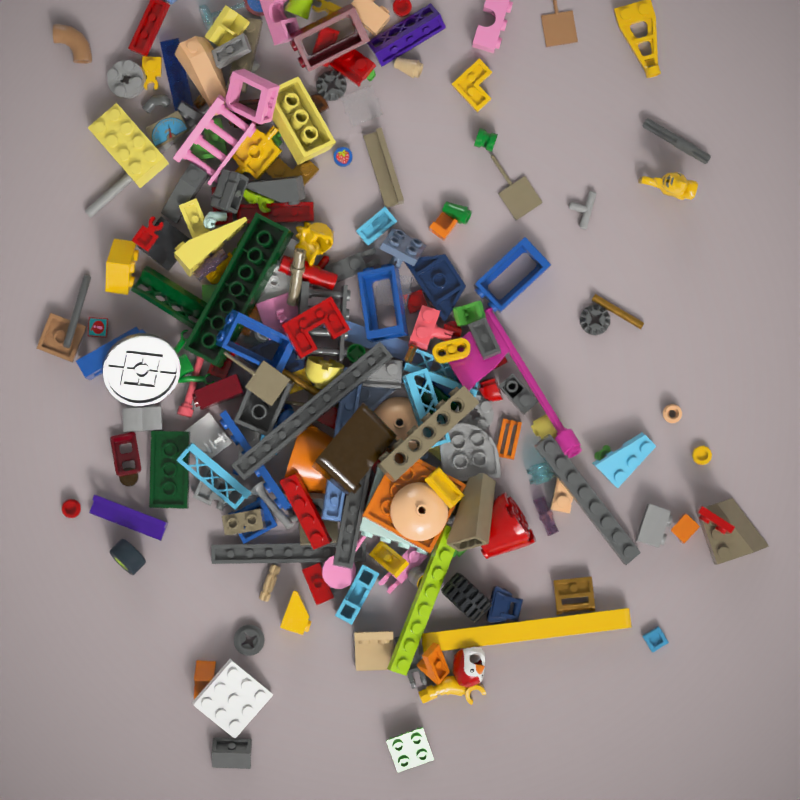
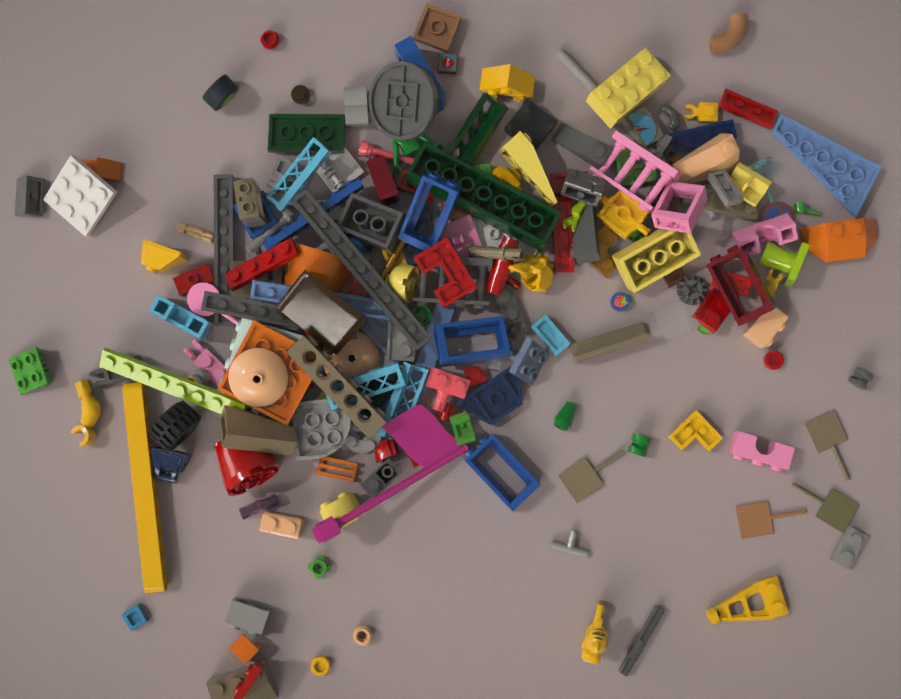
camera: 90 degrees right, 0 degrees up
(77, 311) = (462, 41): dark grey bar -> none
(116, 76) = (691, 96): light grey plate -> none
(119, 458) = (318, 84): dark red piece -> none
(128, 517) = (261, 94): dark purple fence -> none
(145, 236) = (536, 105): red plate -> none
(194, 218) = (556, 154): light yellow panel -> none
(210, 264) = (509, 169): pin -> none
(212, 217) = (556, 170): light aqua arm -> none
(246, 649) = (130, 211): dark grey gear -> none
(266, 381) = (390, 222): dark tan piece -> none
(373, 650) = (128, 334): tan bracket -> none
(388, 559) = (215, 349): yellow plate -> none
(408, 36) = (743, 366): dark purple fence -> none
(408, 66) = (712, 368): tan cone -> none
(410, 353) = (420, 369): clear orange tile -> none
(434, 664) = (109, 394): orange slope -> none
(443, 226) = (551, 402): orange panel -> none
(444, 487) = (282, 403): yellow tile -> none
(451, 349) = (426, 409): yellow plate -> none
(468, 673) = (101, 429): piece -> none
(484, 338) = (436, 443): dark grey plate -> none
(540, 473) = (301, 501): clear light blue wheel -> none
(571, 589) = (186, 535): pearl gold plate -> none
(587, 499) = (273, 548): dark grey plate -> none
(594, 329) = (457, 546): dark grey gear -> none
(617, 311) = (466, 579): pearl gold bar -> none
(621, 463) = (314, 587): medium azure wing -> none

